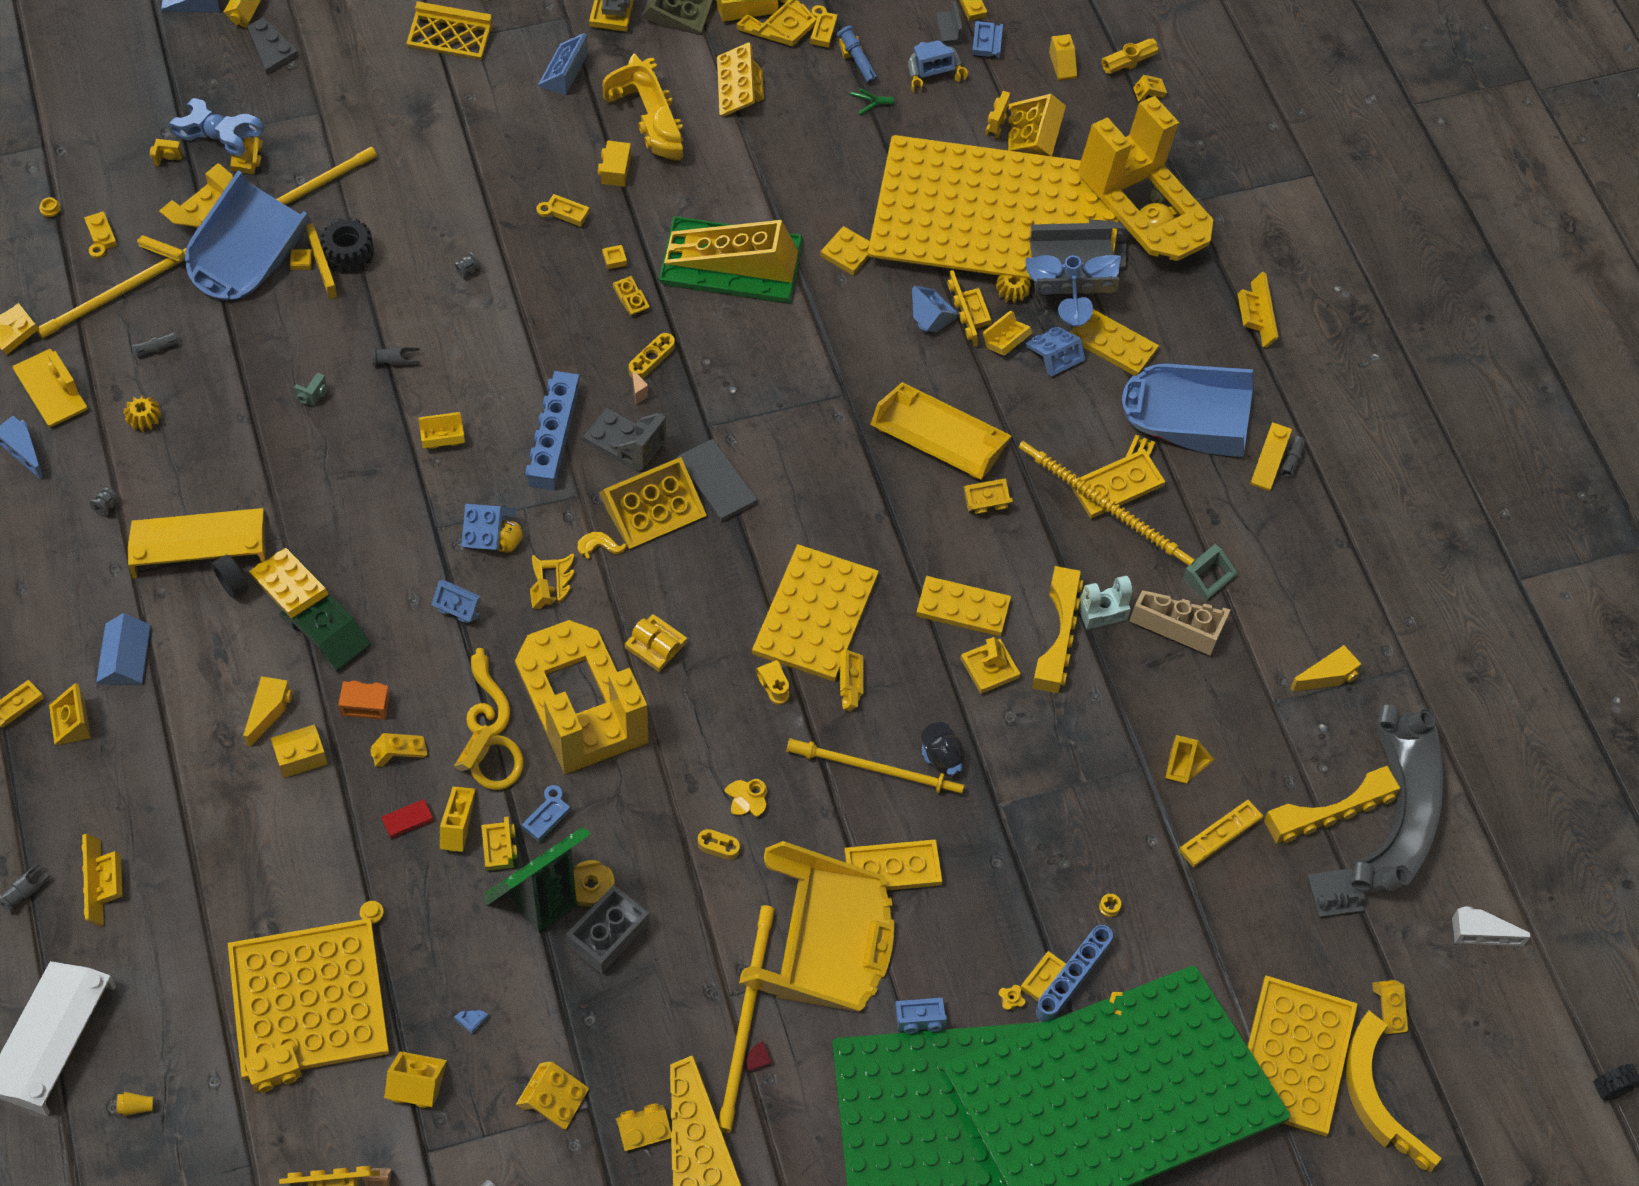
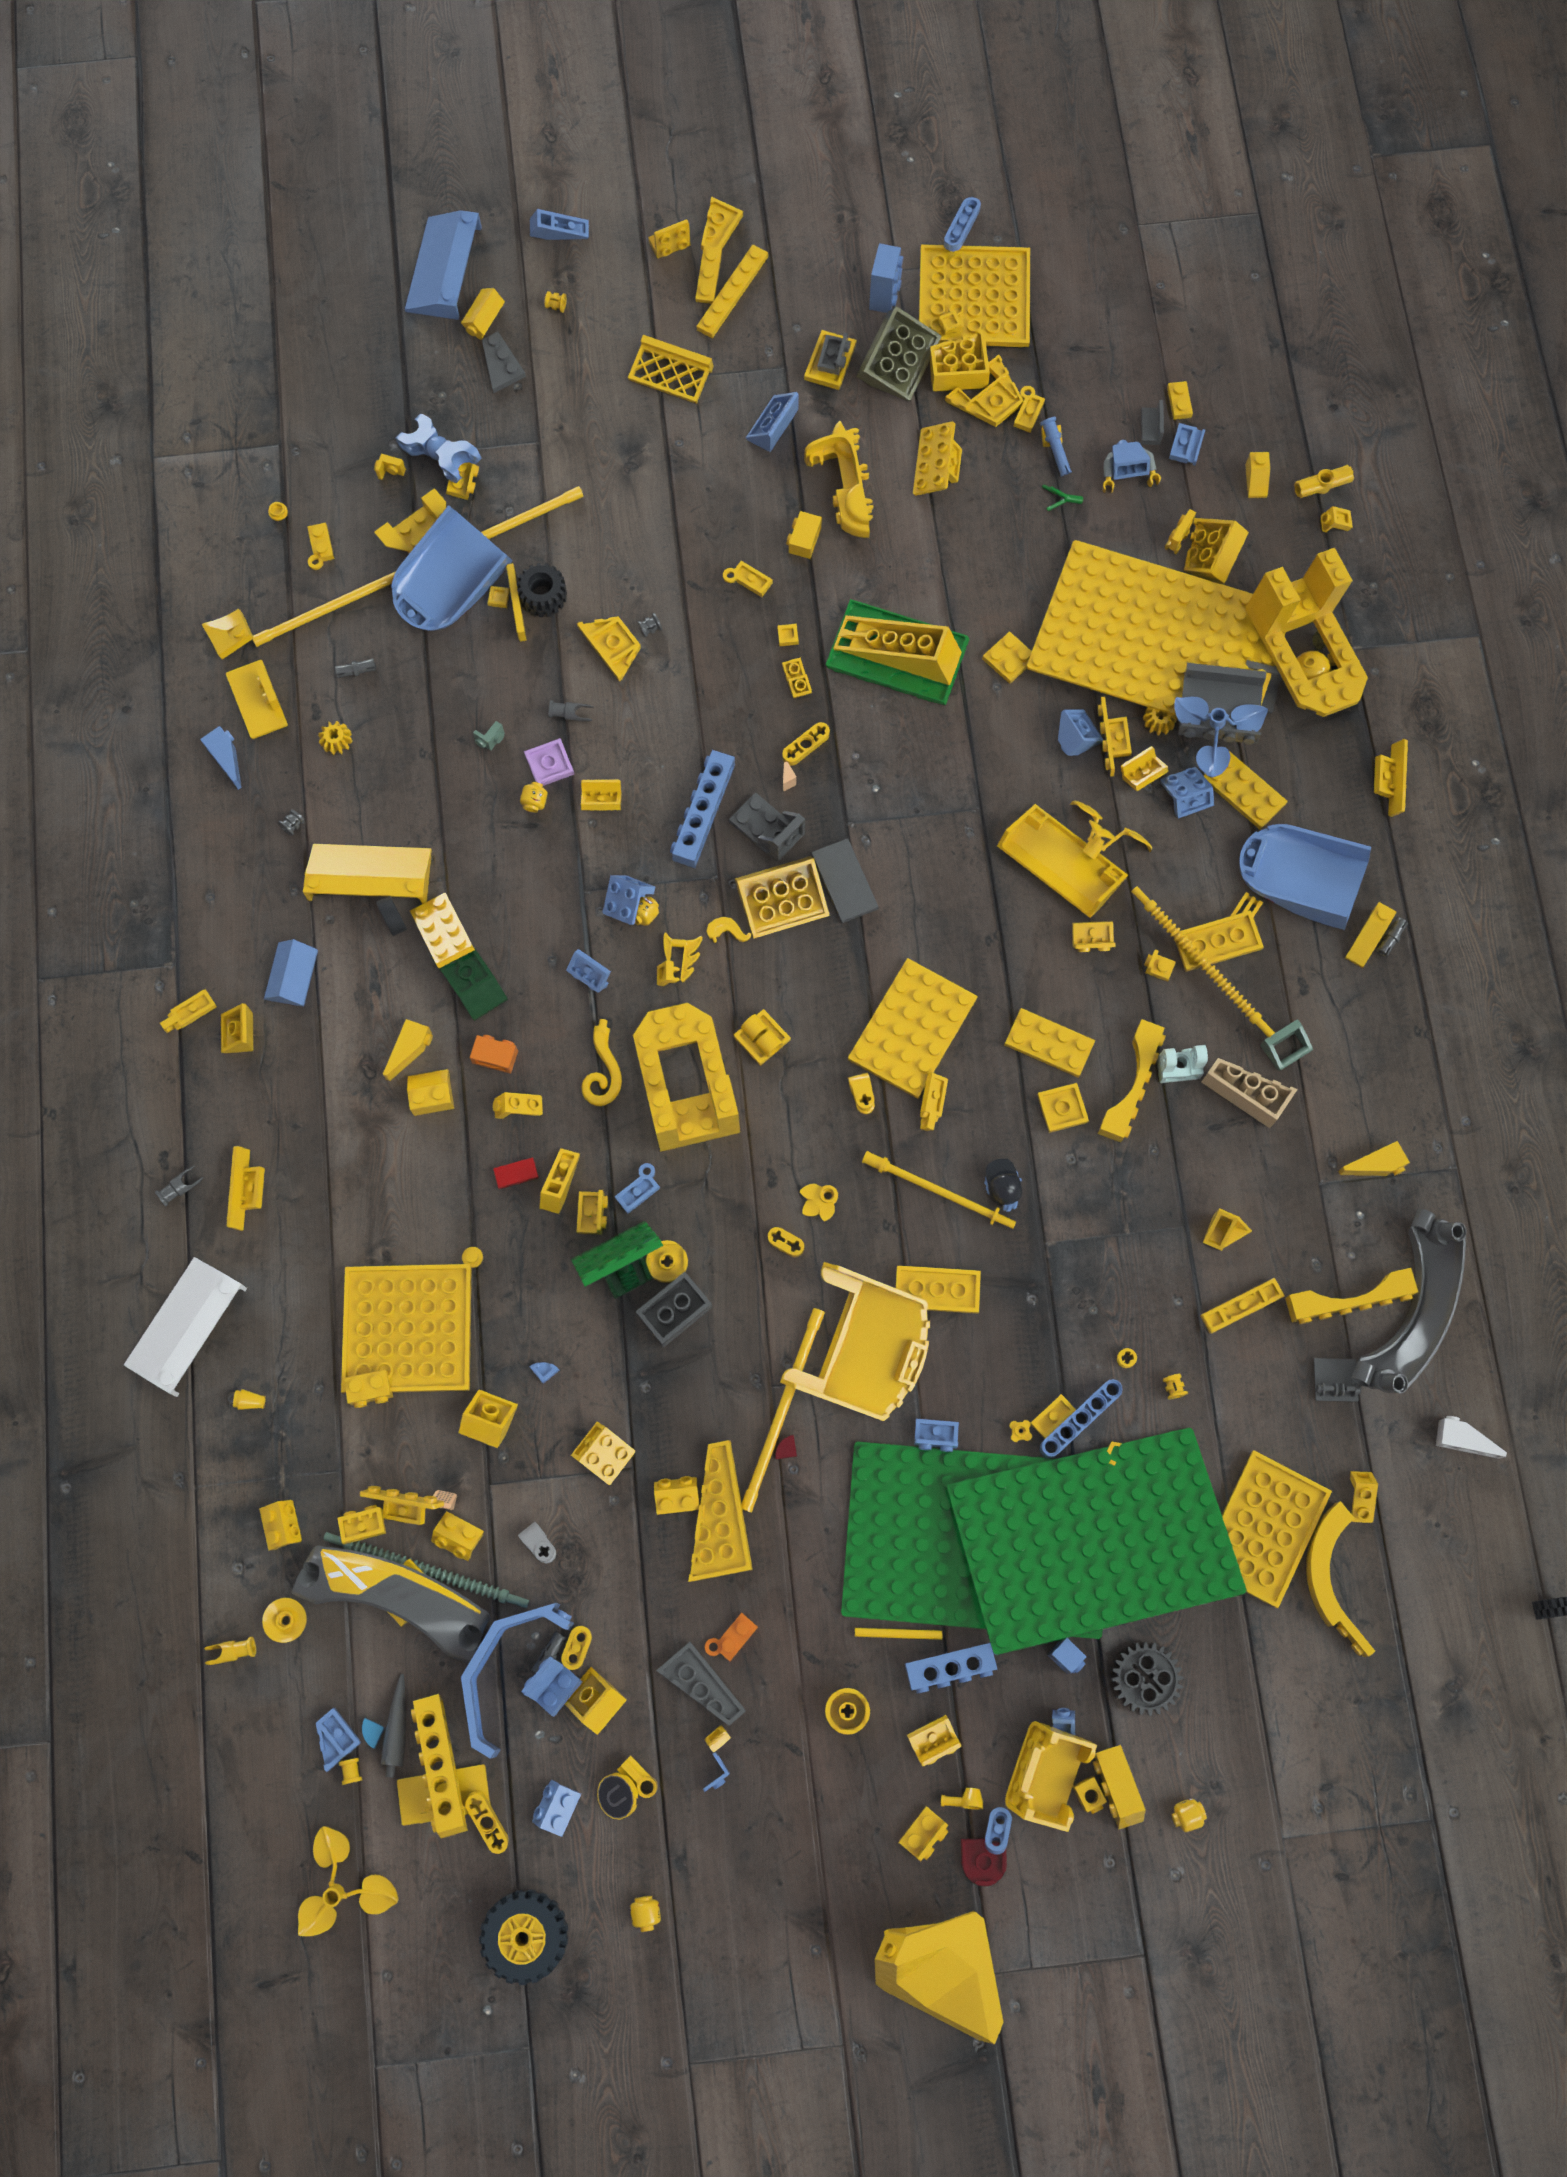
camera: 15 degrees right, 15 degrees up
(161, 248) = (372, 569): yellow axle -> none
(369, 442) = (533, 797): none -> yellow head
(380, 409) = (549, 762): none -> lavender tile
(430, 287) = (612, 643): none -> yellow wing
(476, 751) = (585, 1120): yellow tile -> none
(972, 407) = (1095, 843): none -> yellow plant
(995, 651) = (1069, 1098): yellow tile -> none
(1061, 516) = (1159, 966): none -> yellow bracket
(1167, 925) = (1170, 1388): none -> yellow bush

